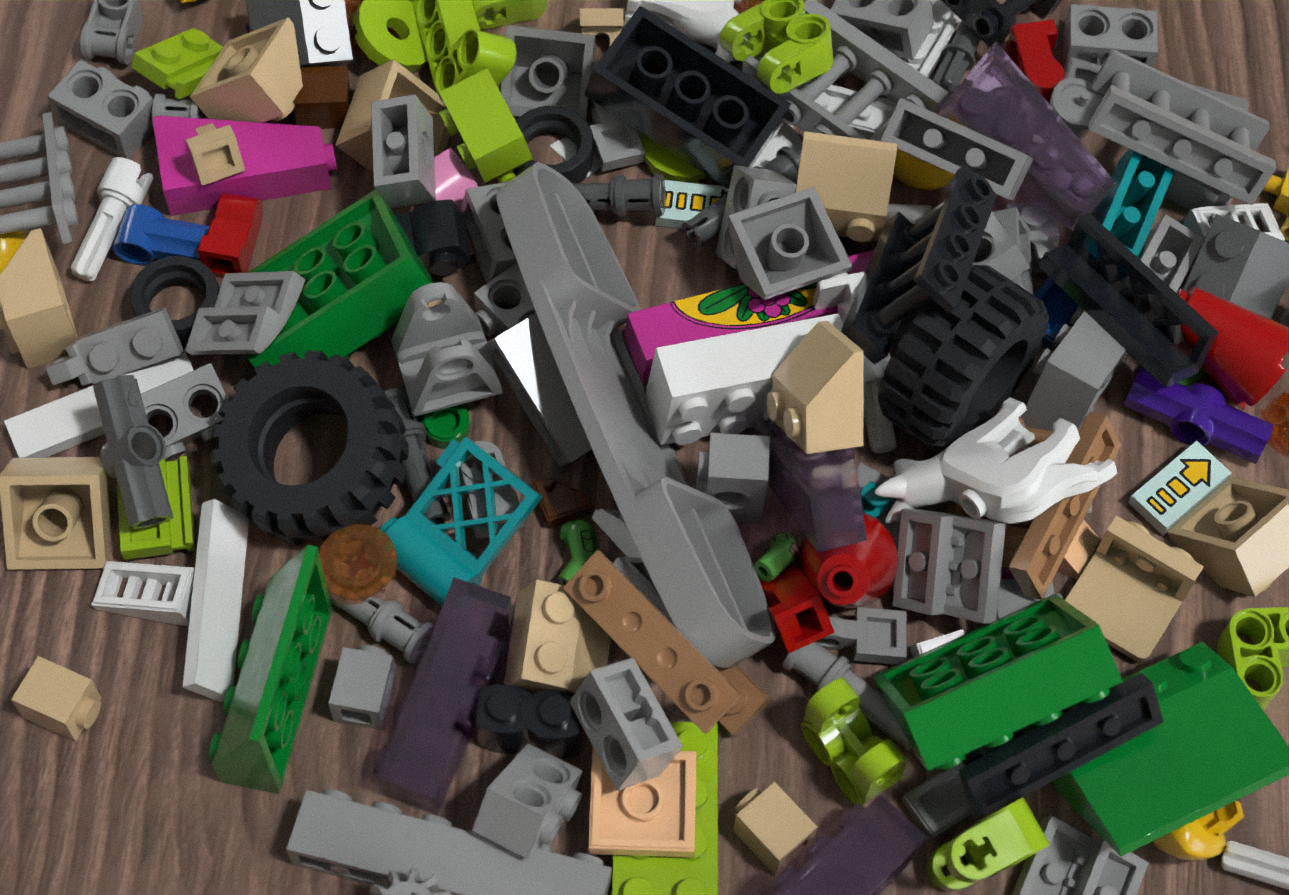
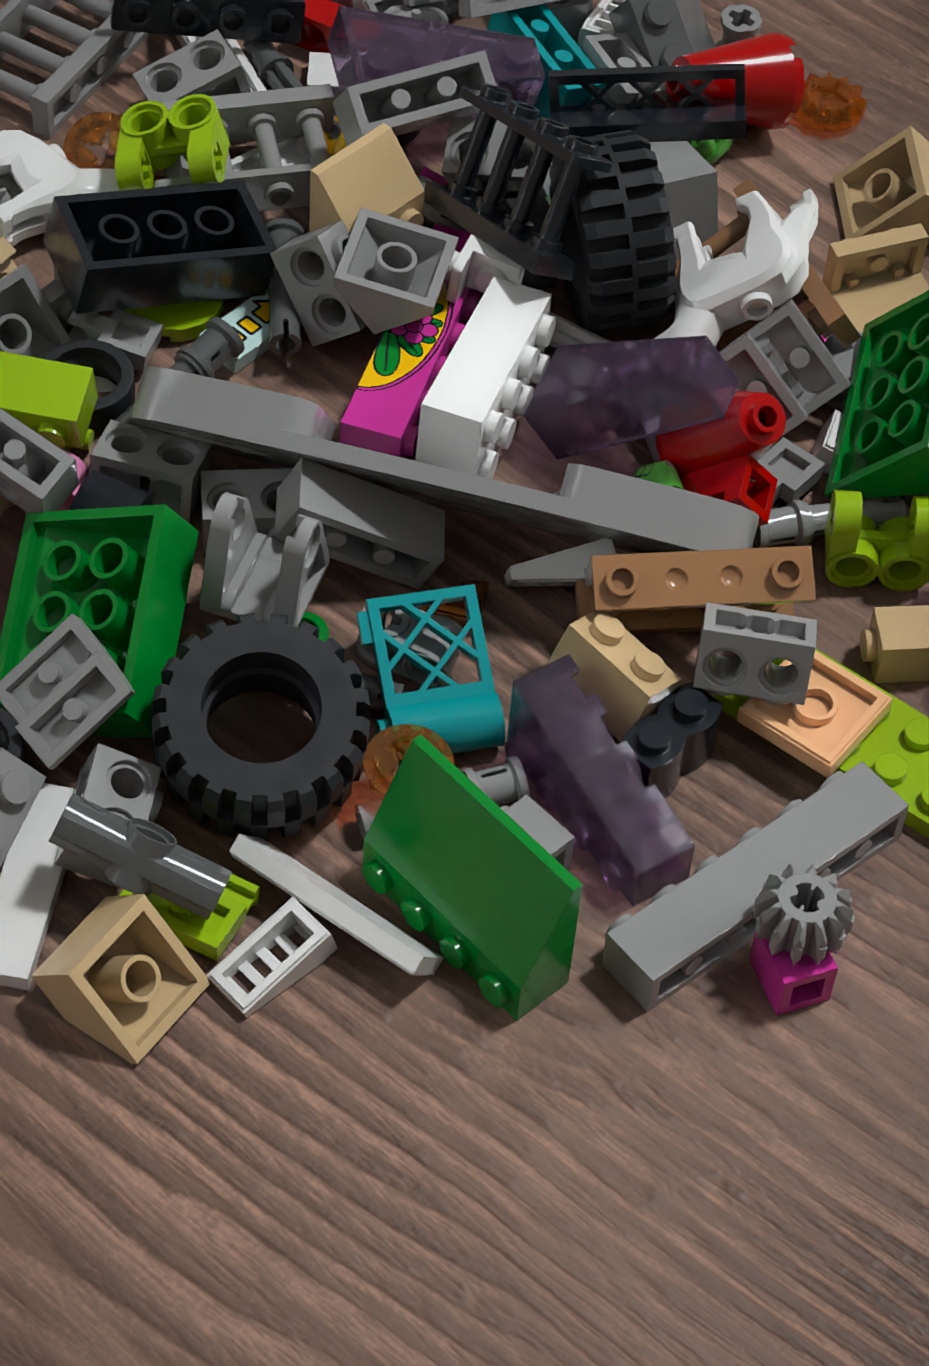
camera: 55 degrees left, 10 degrees down
(57, 699) = (331, 1087): tan brick -> none
(529, 801) = (754, 780): light grey brick -> none
(582, 545) = (530, 617): bright green arm -> none
(736, 473) = (566, 435): light grey brick -> none
(820, 392) = (575, 317): tan slope -> none
(1179, 487) = (831, 218): light aqua tile -> none
(1199, 415) = (773, 153): dark purple piece -> none

